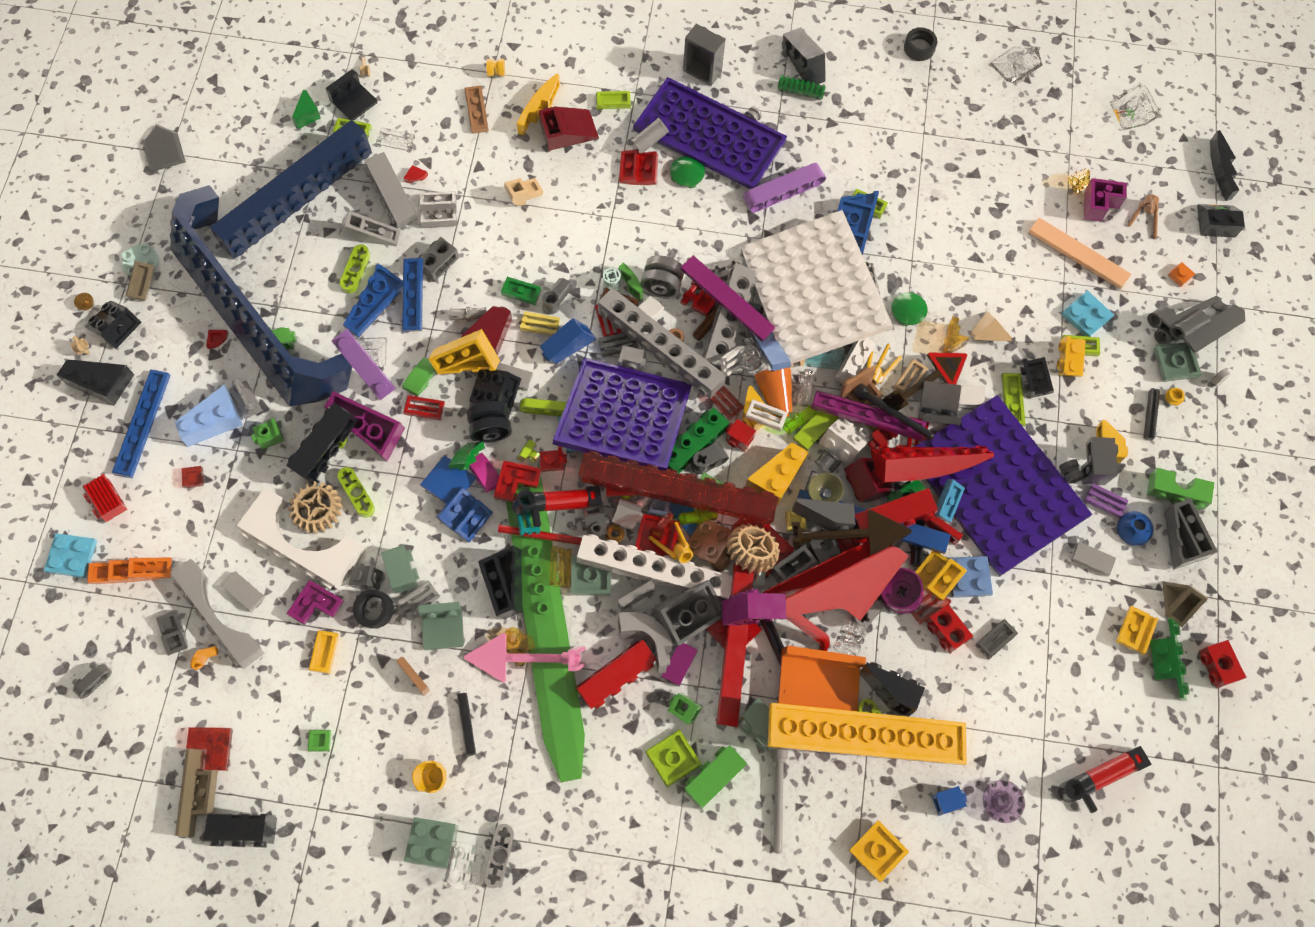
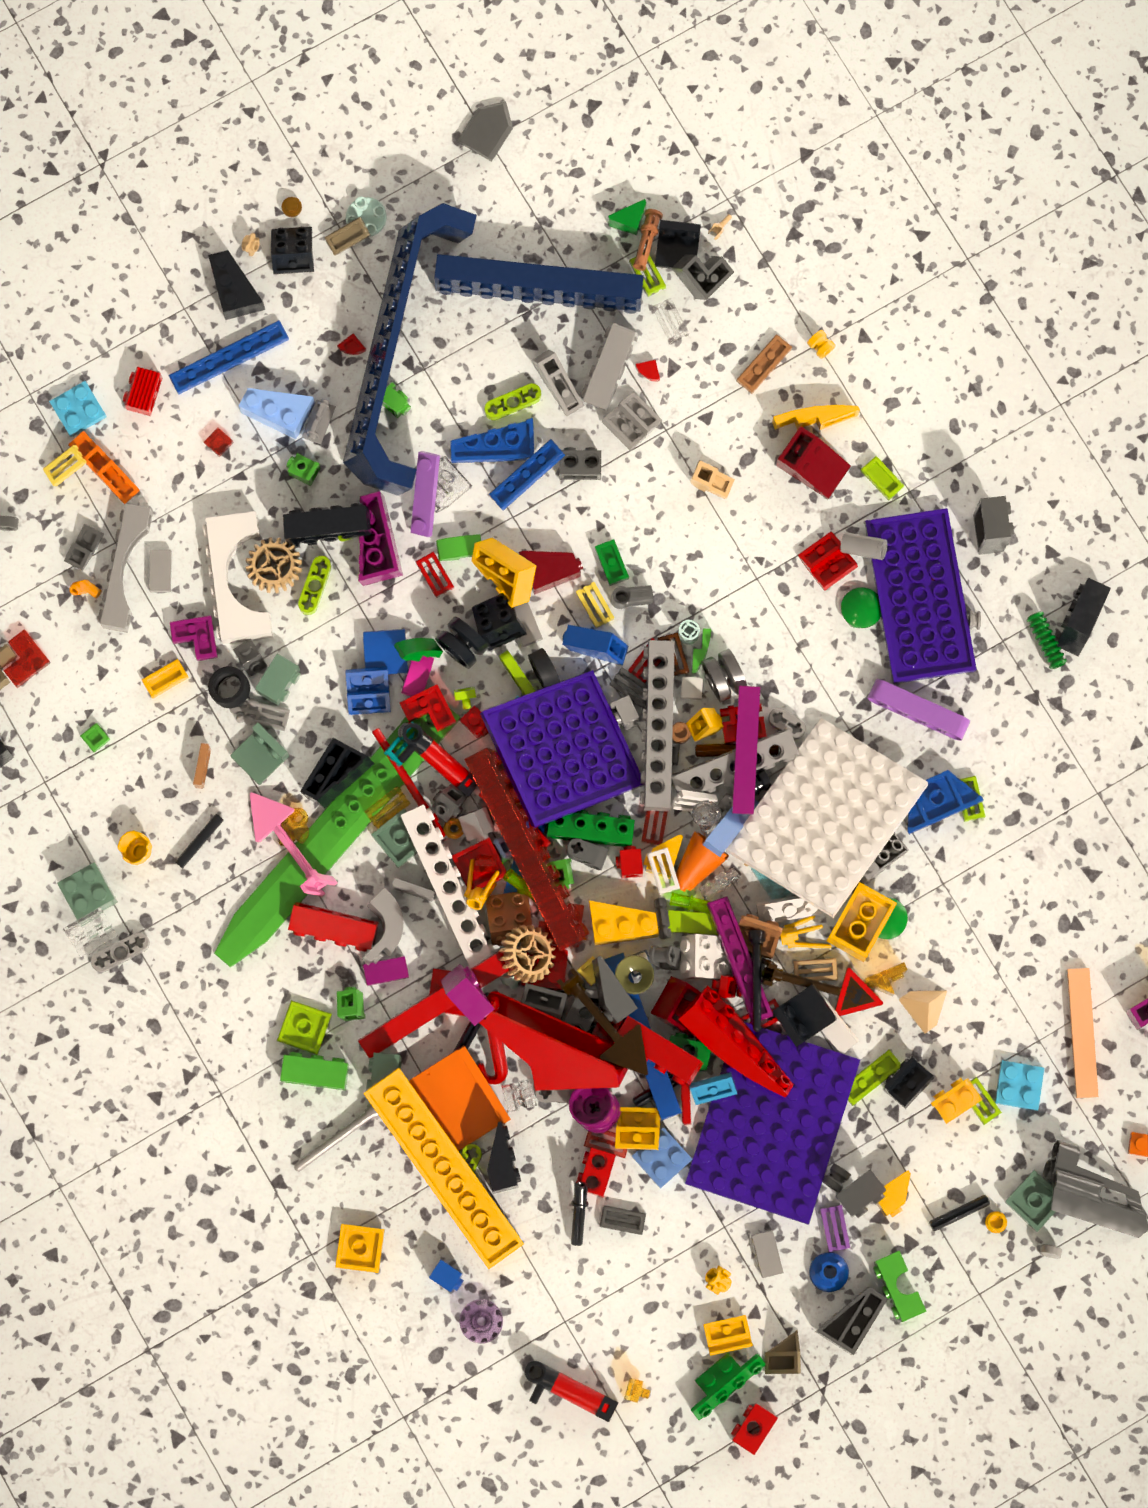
camera: 55 degrees right, 10 degrees up
(106, 606) = (77, 456): none -> light yellow tile
(326, 105) = (648, 232): none -> nougat pin
(385, 95) = (702, 278): none -> dark grey brick
(467, 313) = (551, 535): light grey pin -> none
(555, 384) = (543, 668): none -> black tyre
(684, 315) = (704, 723): none -> yellow slope
(689, 612) = (431, 944): dark grey slope -> none
(787, 439) = (662, 918): none -> dark grey axle
(909, 325) = (861, 922): none -> yellow slope
(967, 657) = (579, 1203): none -> black axle
(1092, 605) = (718, 1280): none -> yellow gear
(1136, 727) = (635, 1390): none -> clear yellow tile

